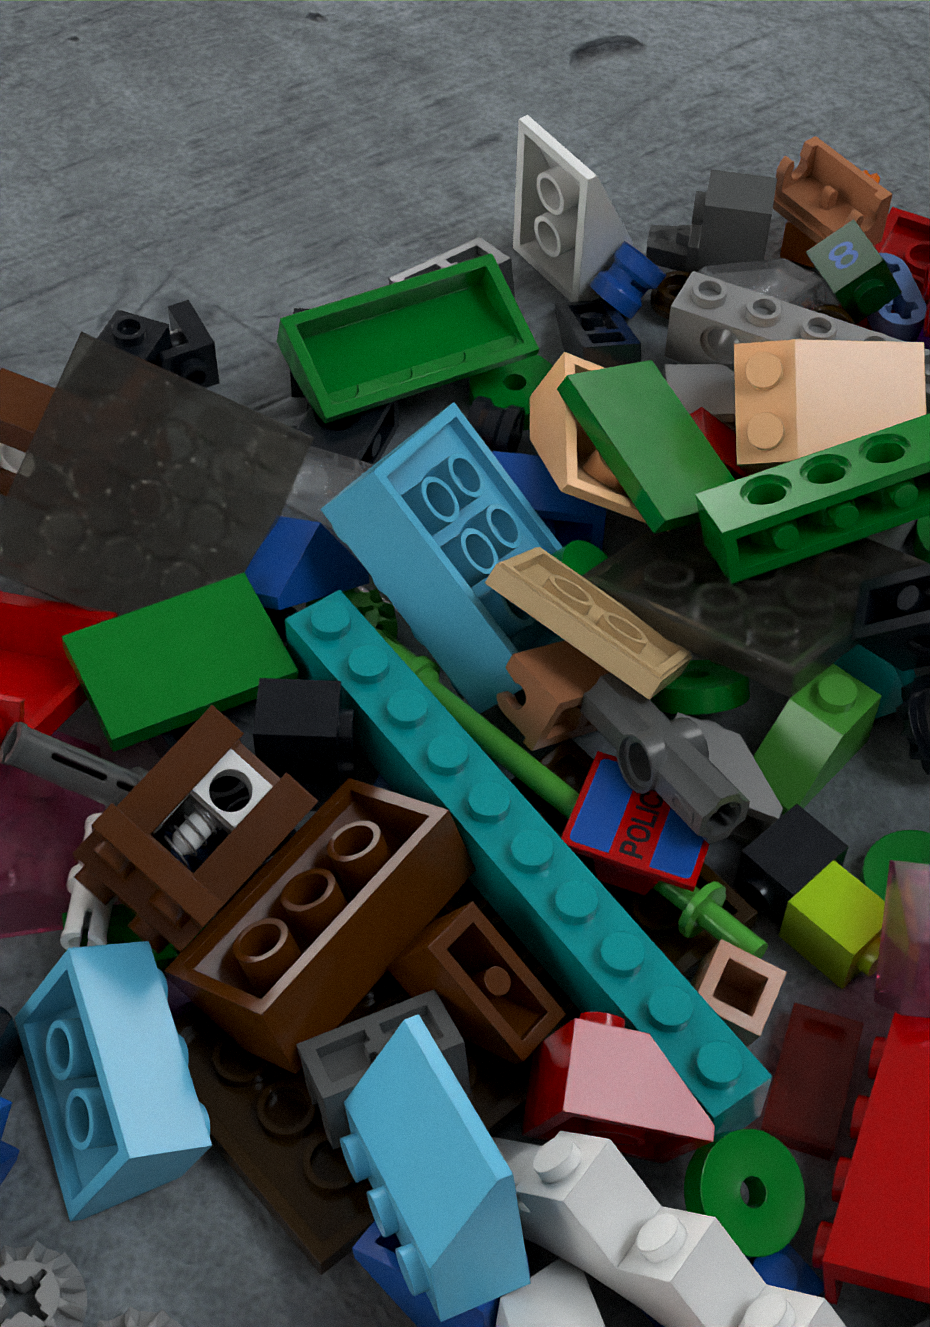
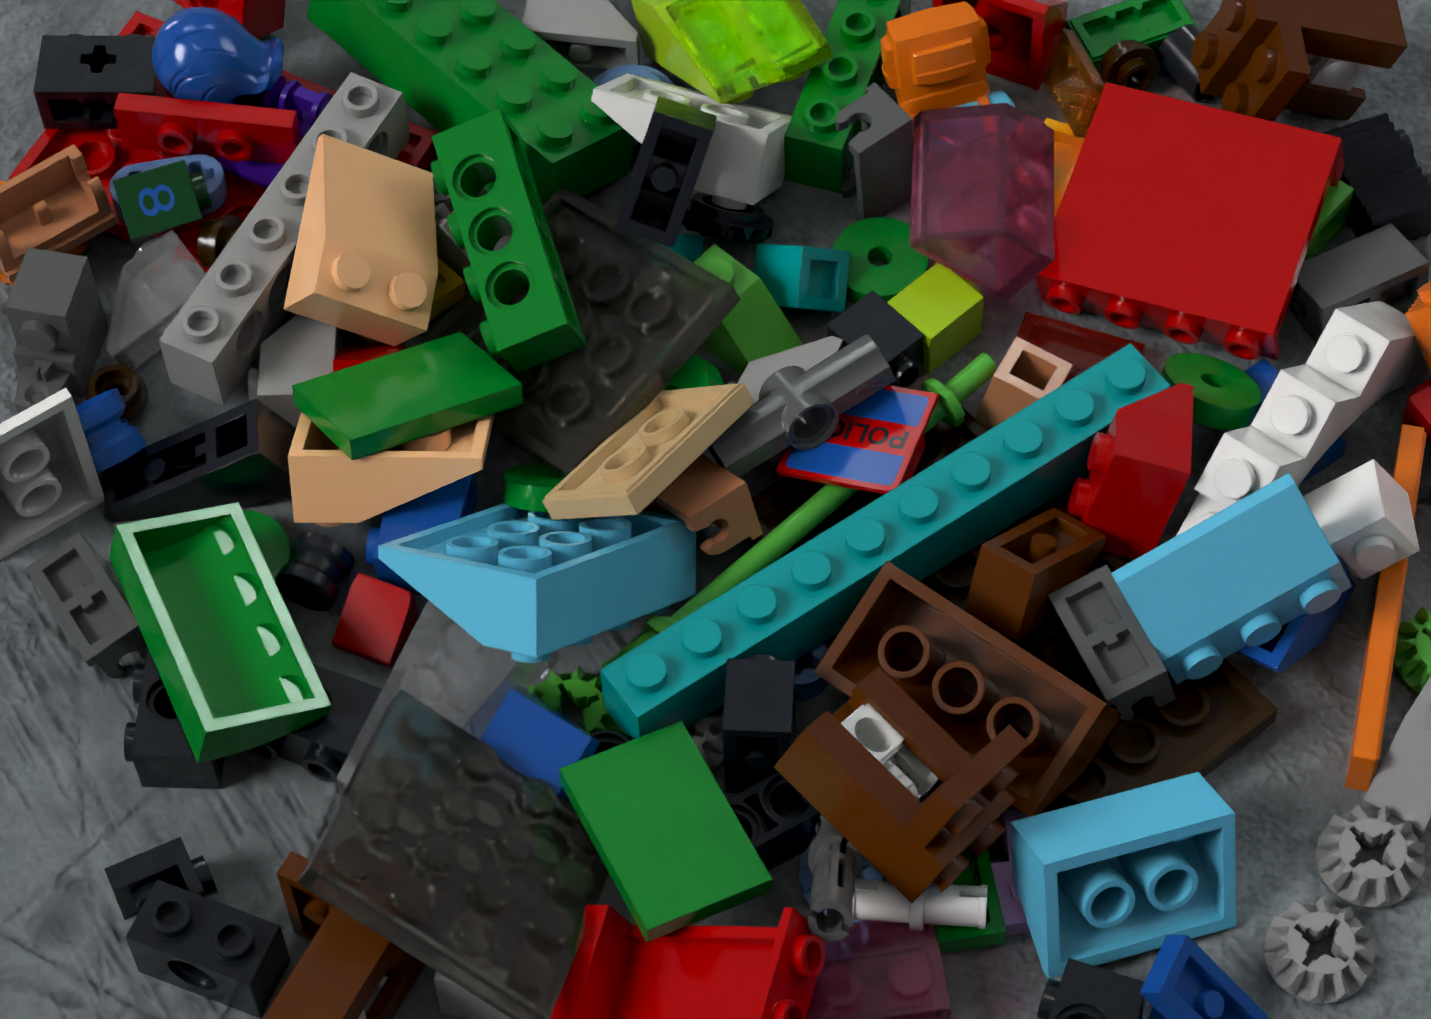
camera: 85 degrees left, 5 degrees up
(875, 800) = (804, 276): none -> teal panel

